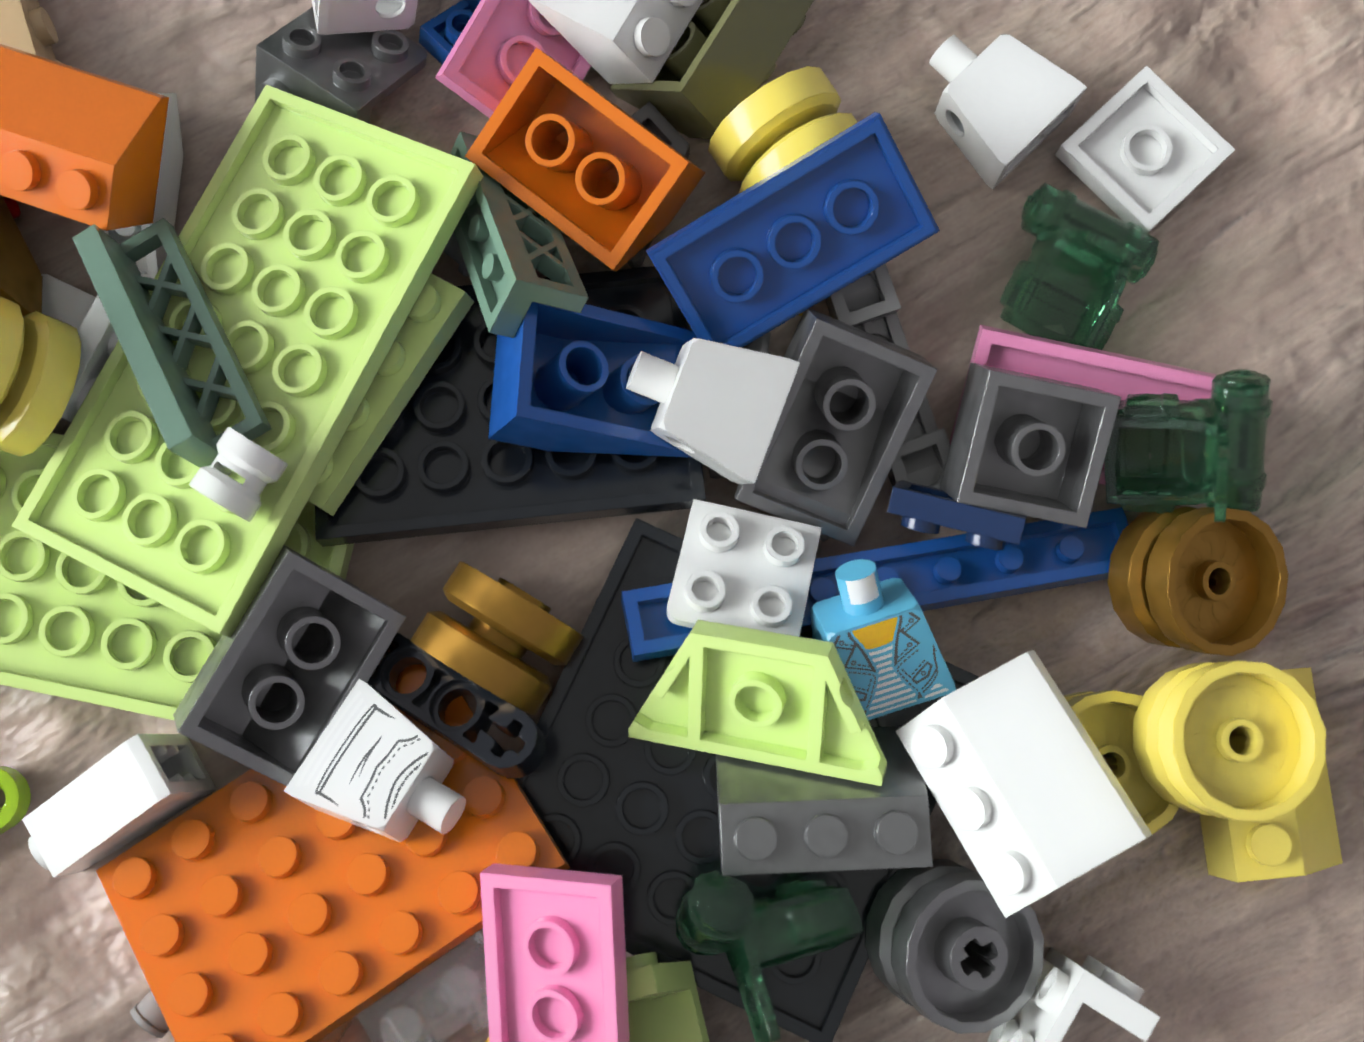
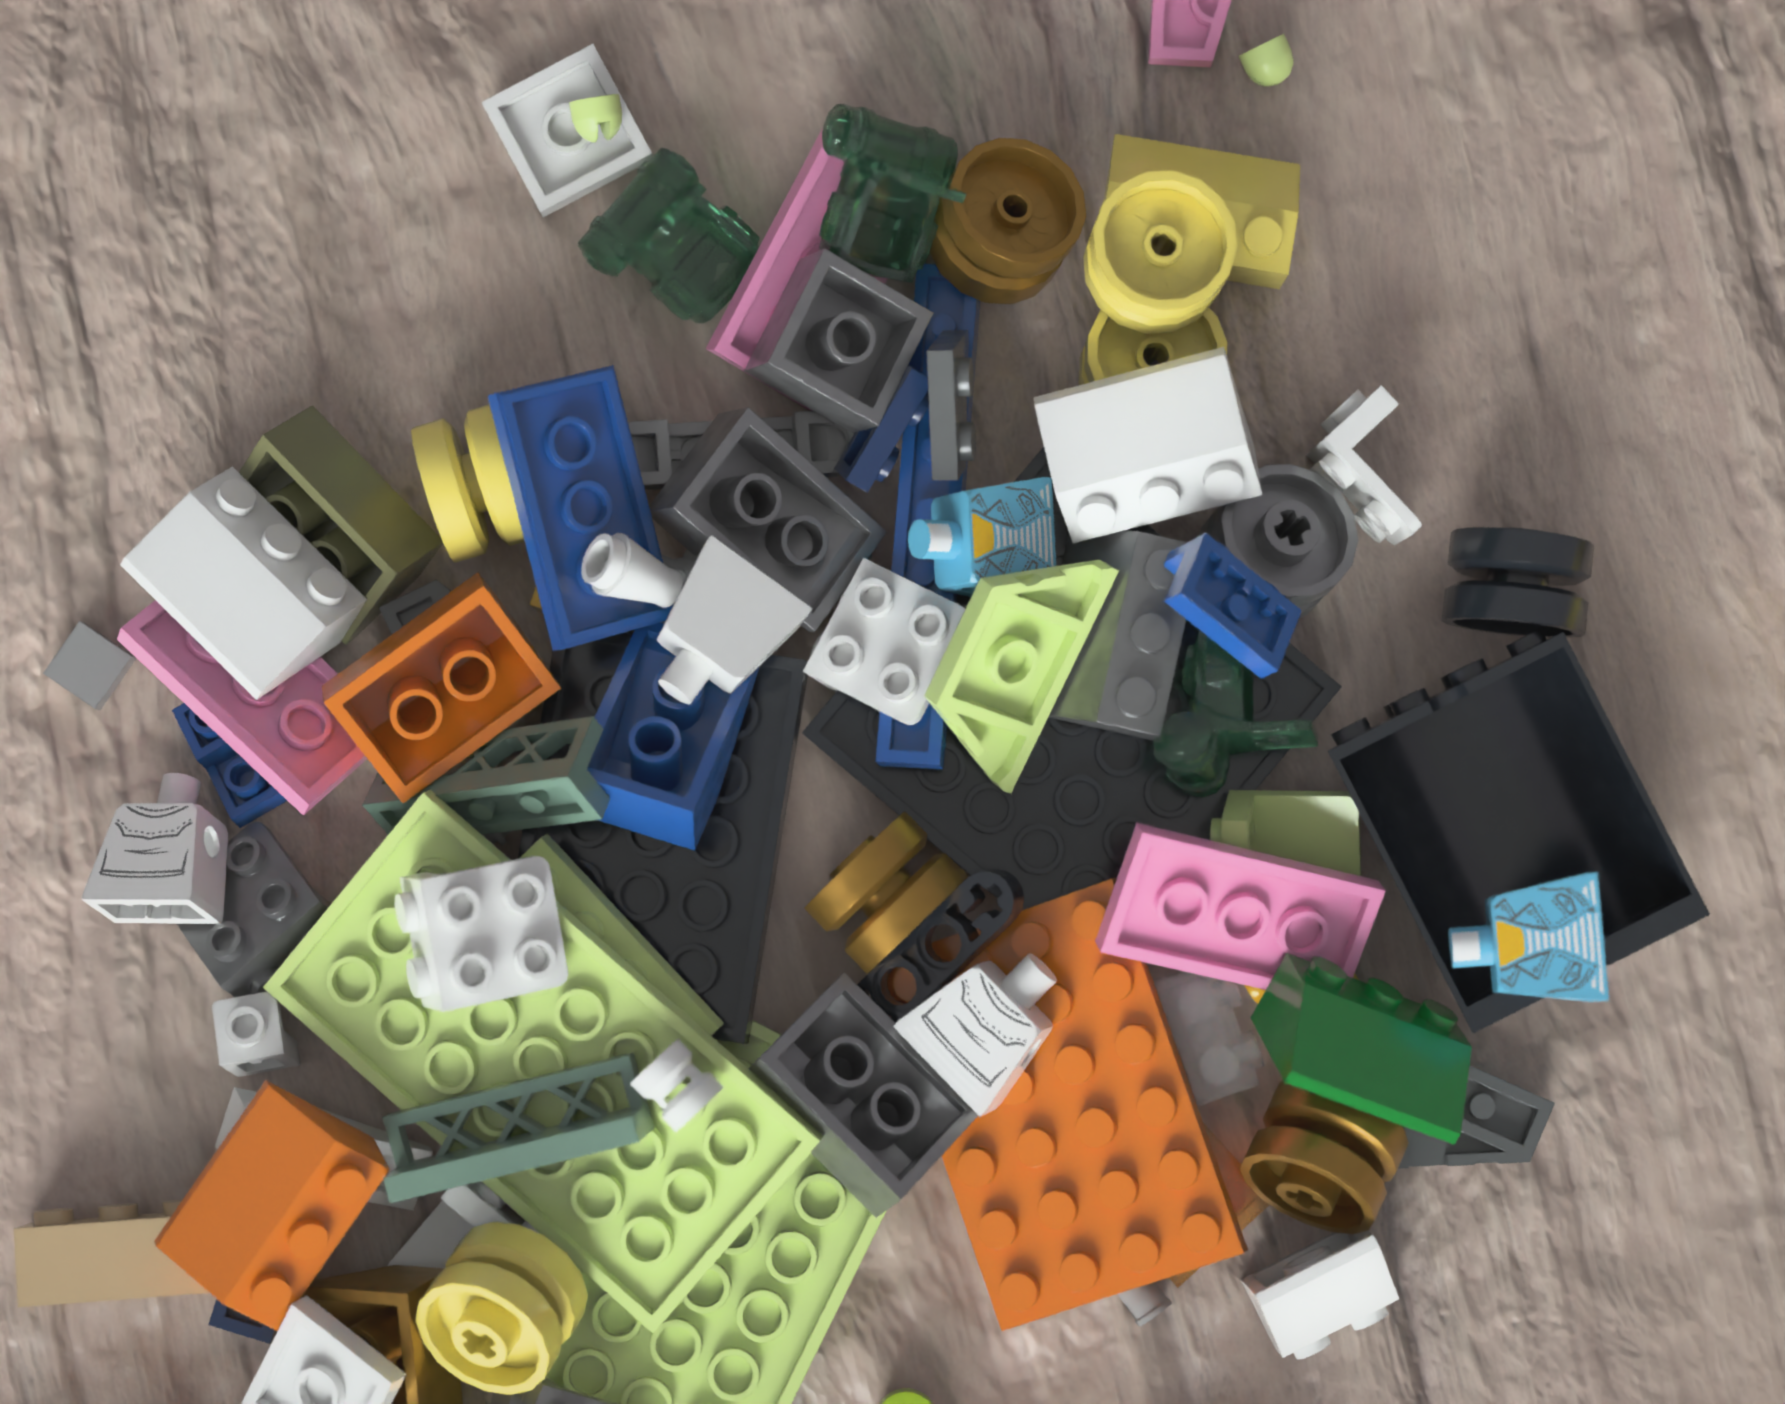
camera: 80 degrees left, 5 degrees up
(116, 802) = (944, 1299): white slope -> none
(222, 90) = (252, 1035): none -> white bracket
(348, 251) = (482, 933): none -> white bracket
(741, 294) = (627, 571): none -> white cone
(880, 916) = (1231, 604): none -> blue bracket
(997, 567) = (948, 388): none -> dark grey wing
(1001, 102) = (477, 257): white torso -> none
(1175, 164) = (591, 112): none -> yellowish green hinge

